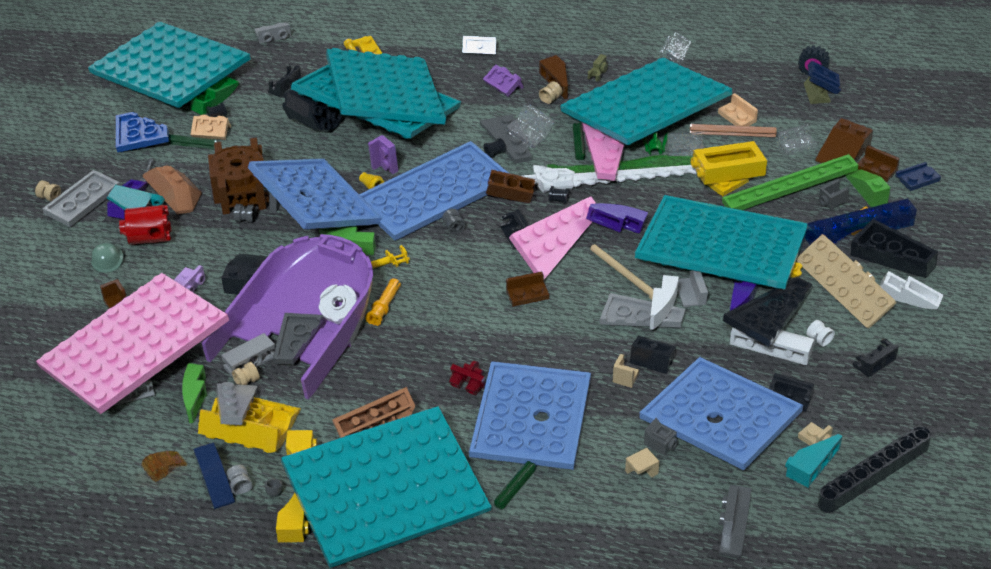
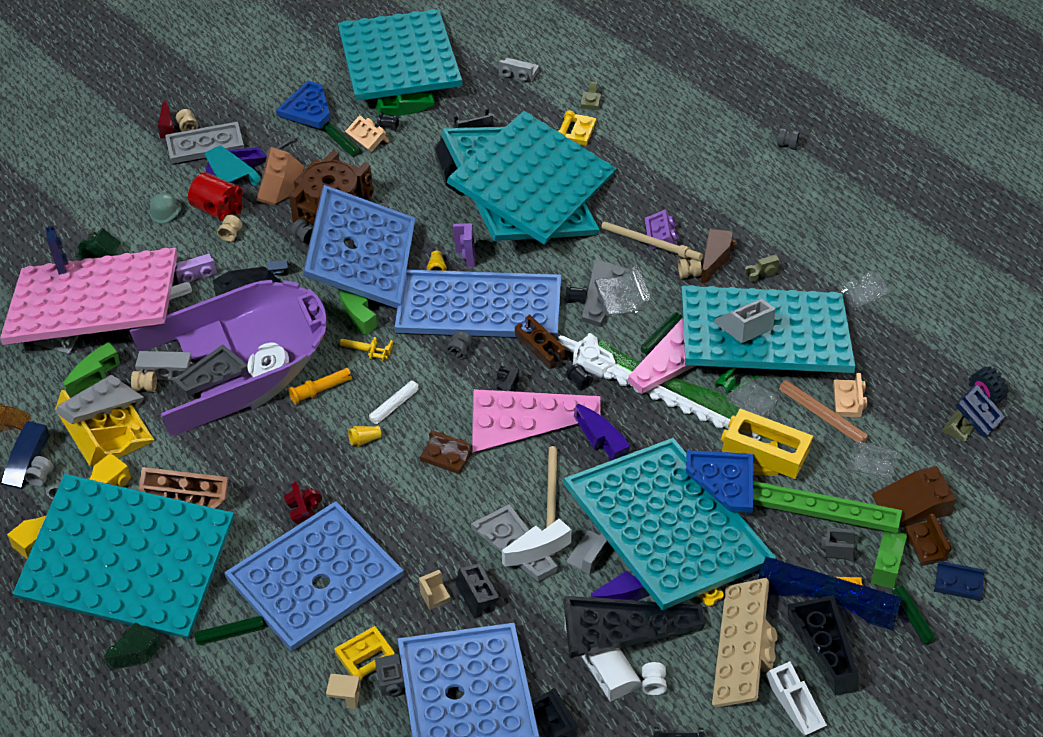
camera: 40 degrees right, 5 degrees up
(31, 200) = (165, 122): none -> dark red slope
(70, 322) = (55, 245): none -> dark blue plate
(87, 308) = (98, 245): none -> clear green slope
(112, 293) = (131, 242): reddish brown panel -> none
(181, 241) = (229, 228): none -> tan wheel
(253, 246) = (278, 266): none -> sand blue plate
(349, 26) = (591, 99): none -> olive plate
(450, 281) = (393, 402): none -> white axle
(455, 313) = (363, 434): none -> yellow cone
(465, 537) = (133, 648): none -> clear green slope
(479, 45) = (681, 181): white panel -> none
(540, 82) = (682, 251): none -> tan bar
(620, 434) = (360, 649): none -> yellow plate
(640, 94) = (748, 320): none -> light grey slope
(727, 194) = (724, 477): none -> blue plate
(923, 210) = (914, 615): none -> dark green axle

